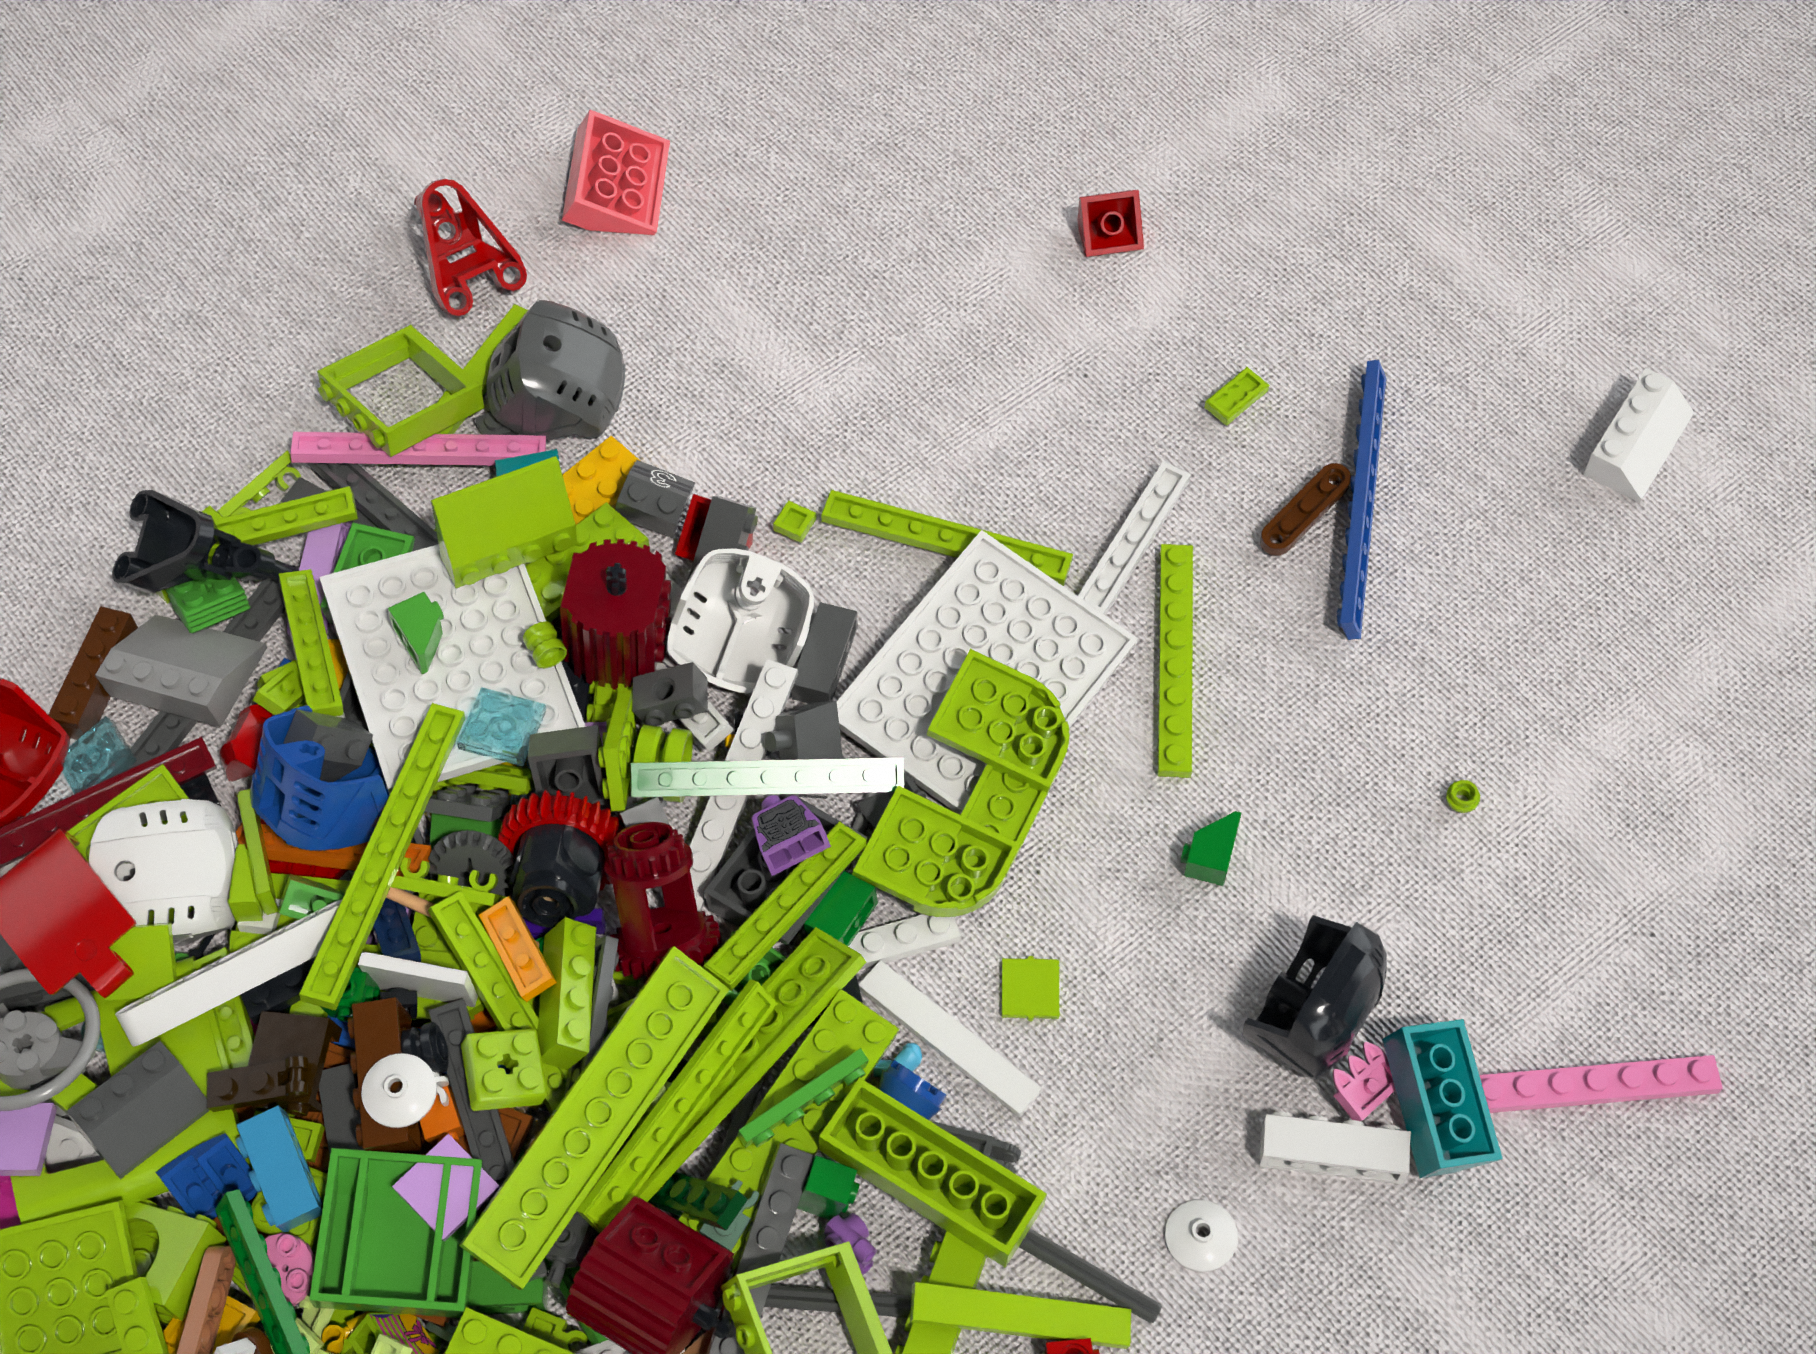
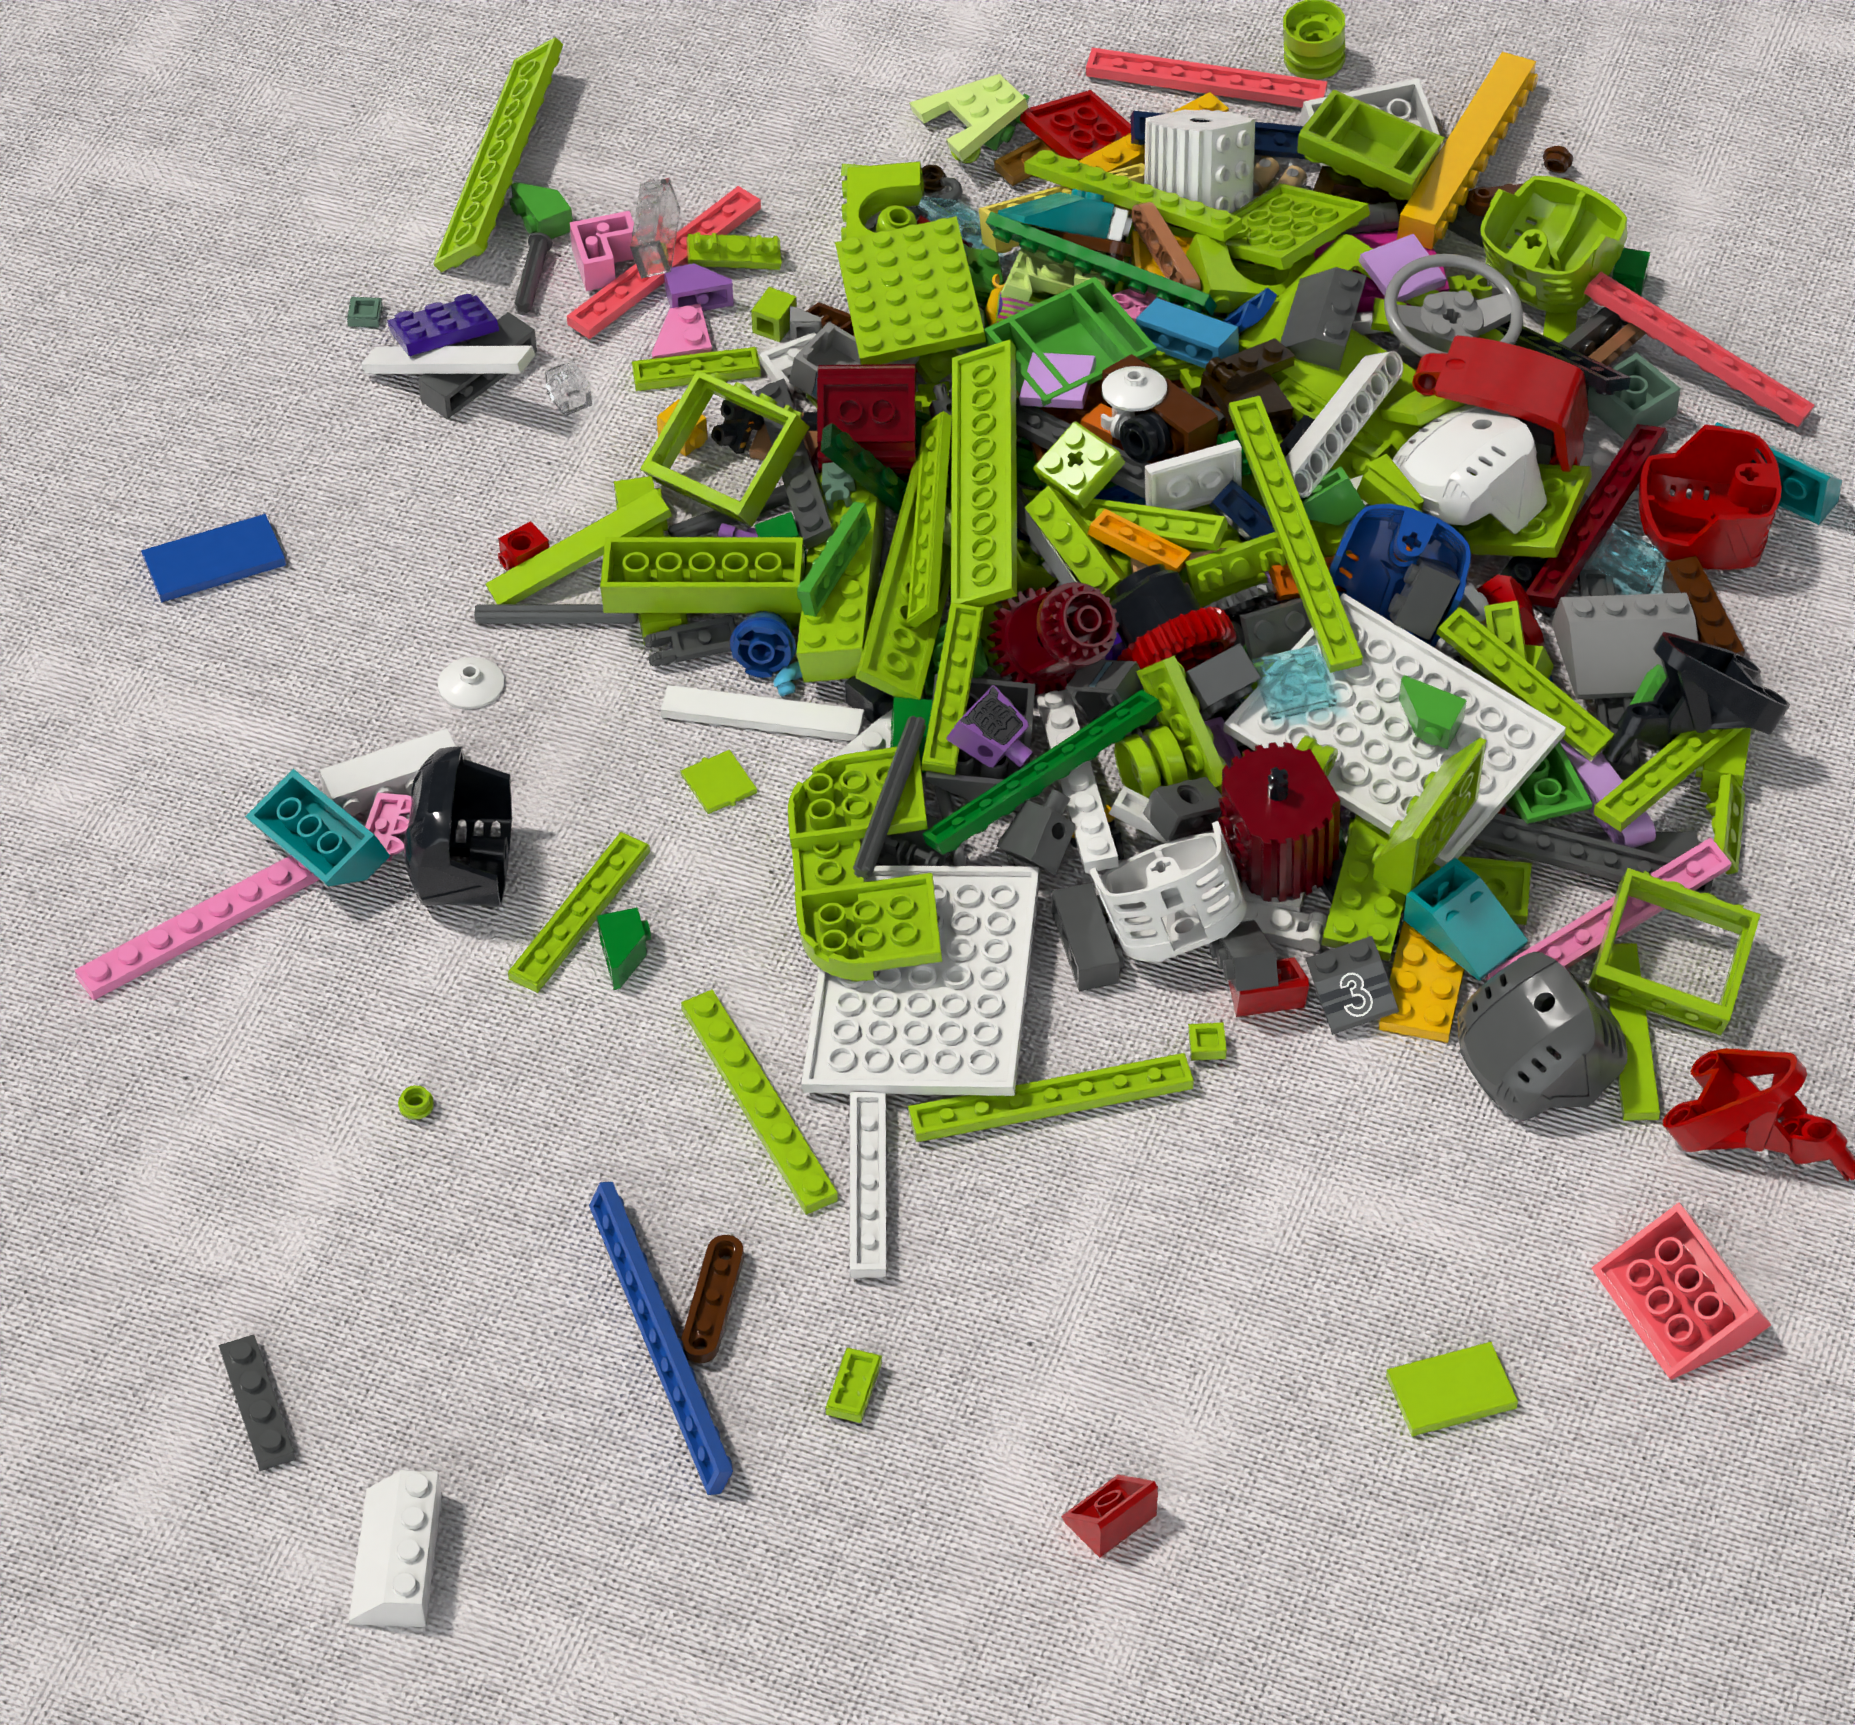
camera: 150 degrees right, 10 degrees down
(818, 200) = (1451, 1389): none -> lime tile
(914, 821) = (889, 797): none -> dark grey axle
(1228, 915) = (578, 912): none -> lime tile
(1701, 607) = (257, 1402): none -> dark grey plate

